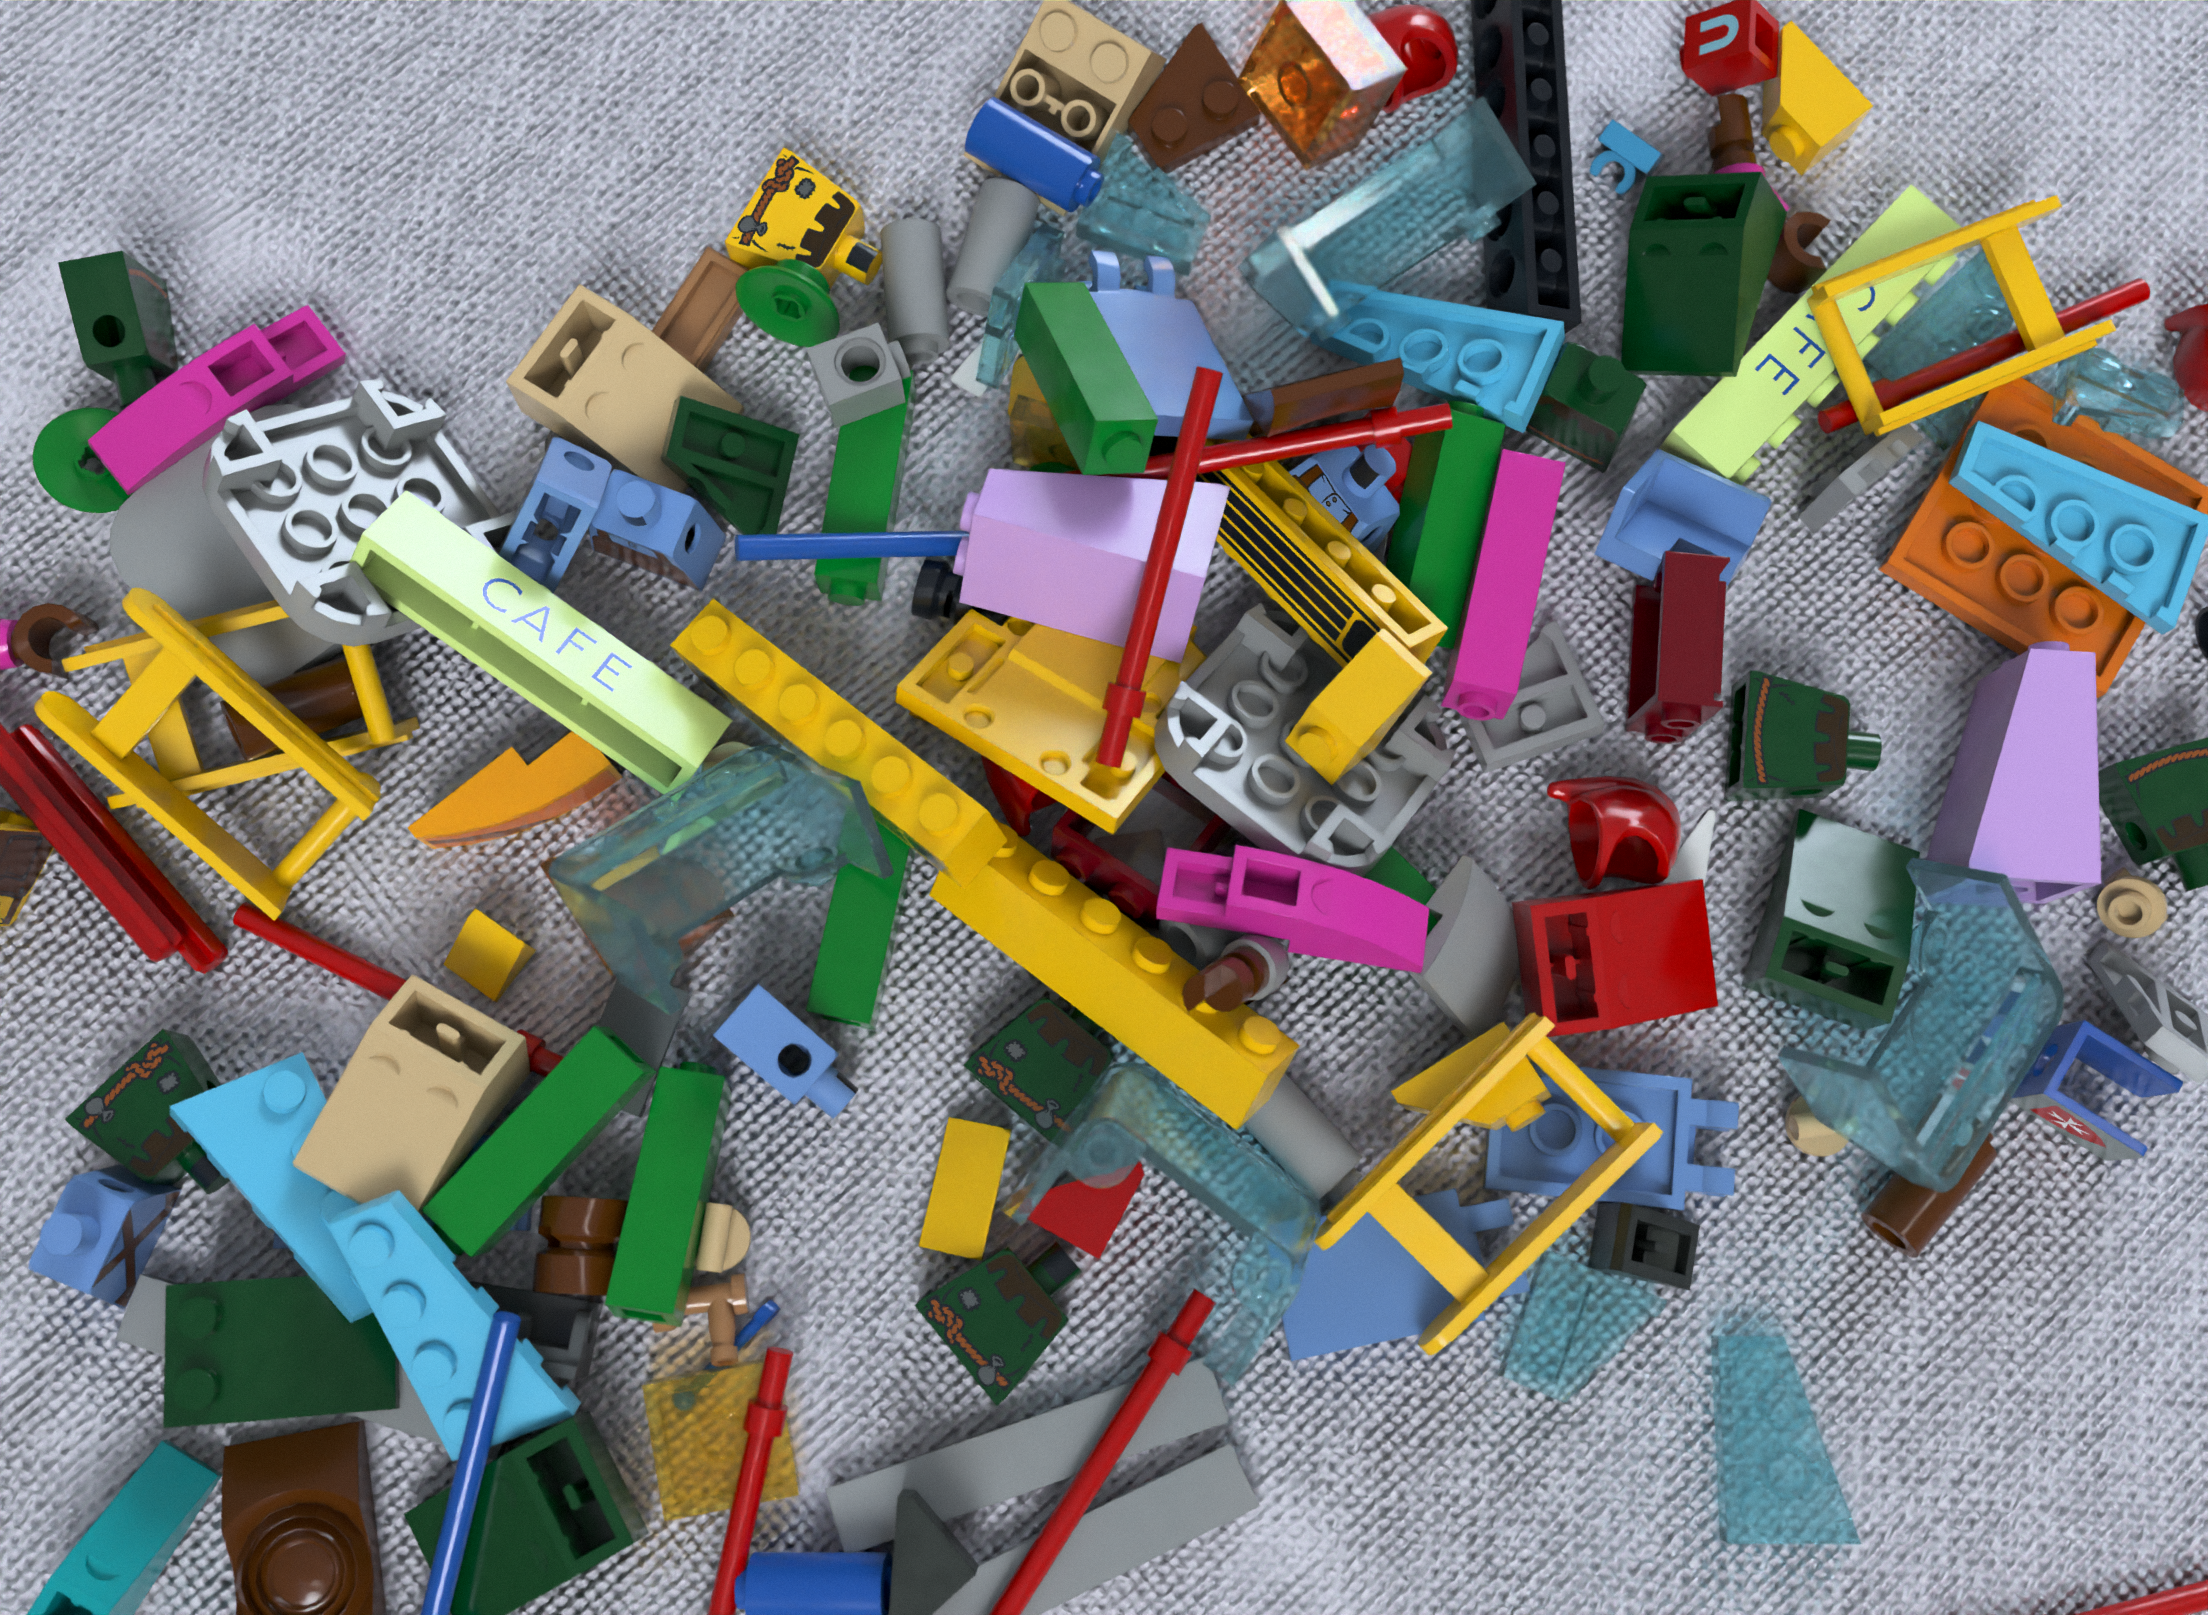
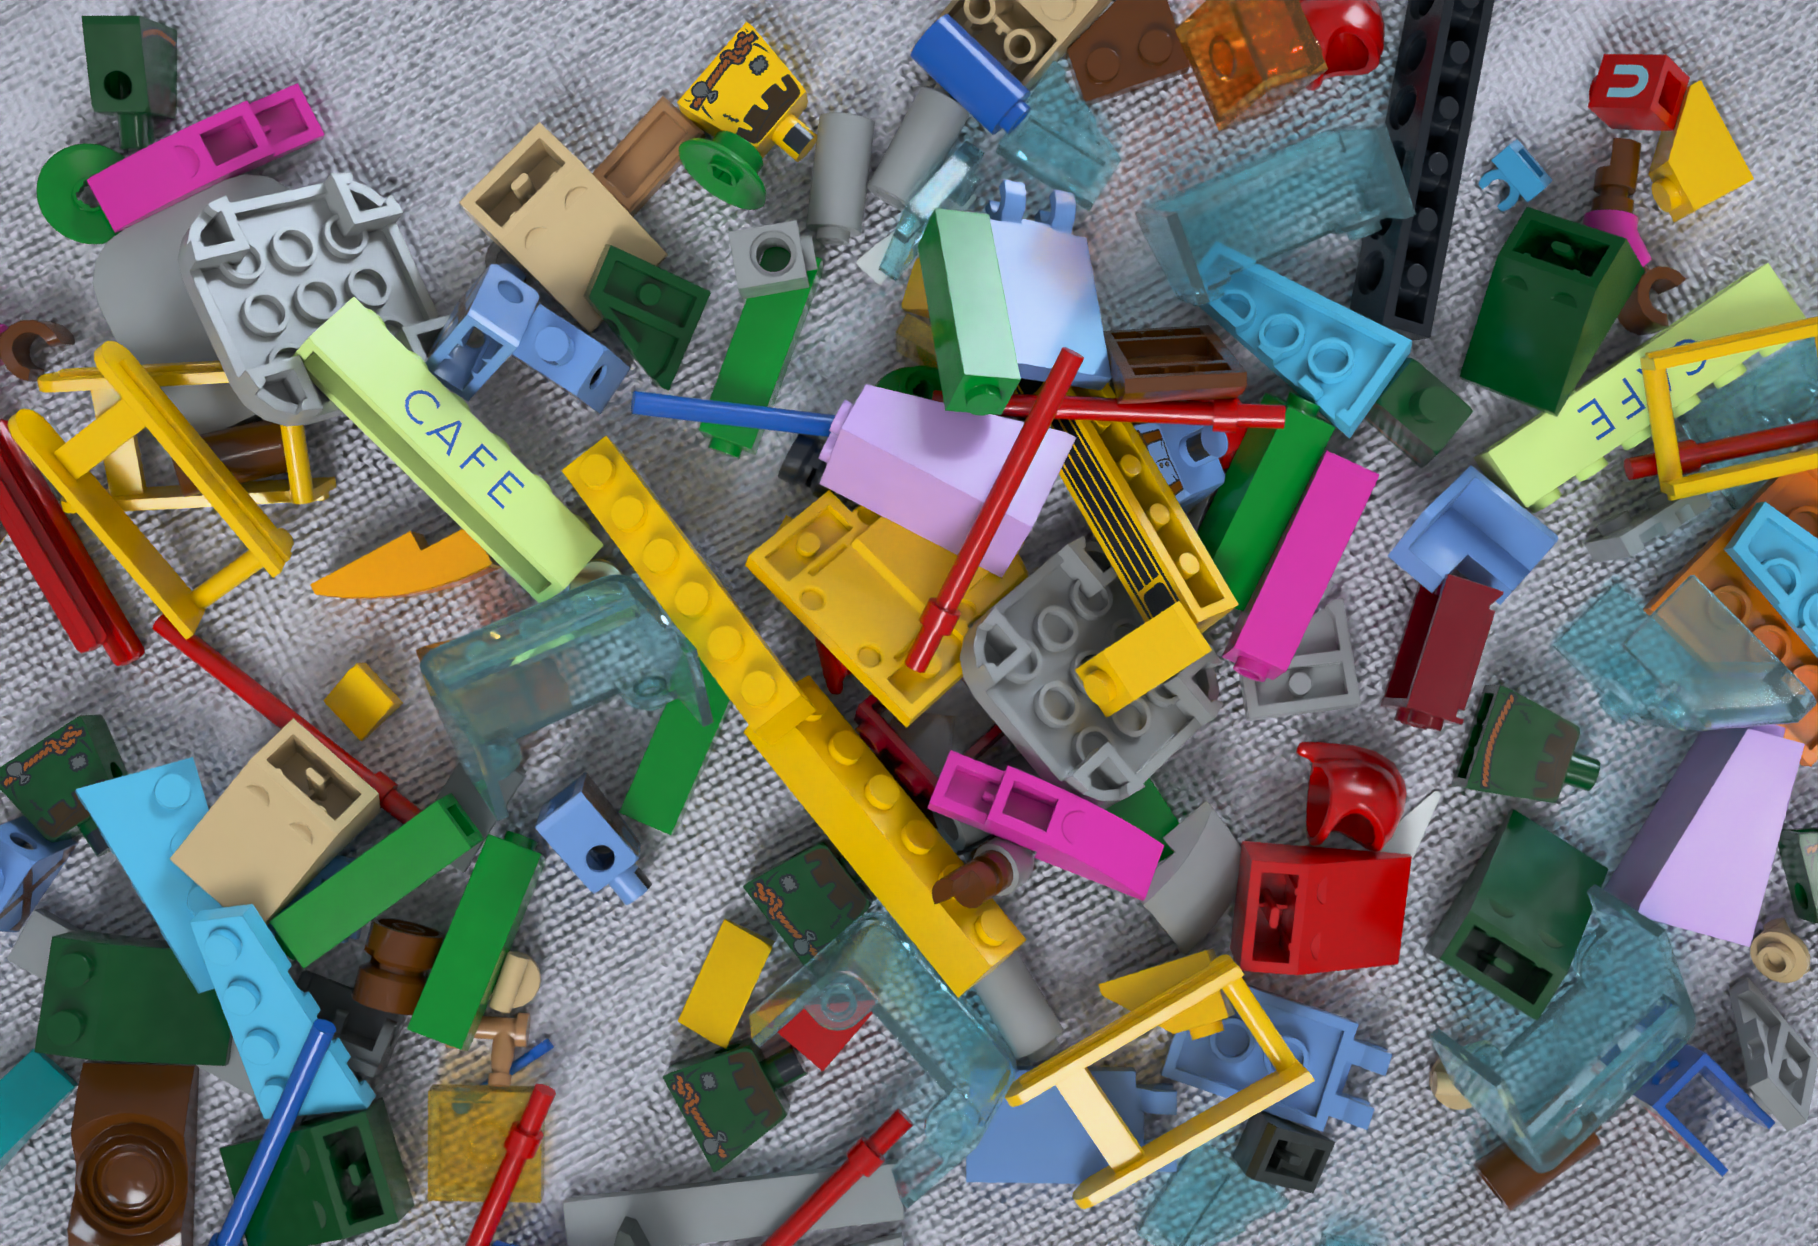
camera: 15 degrees right, 10 degrees up
(1986, 582) = (1682, 664): none -> clear light blue windscreen

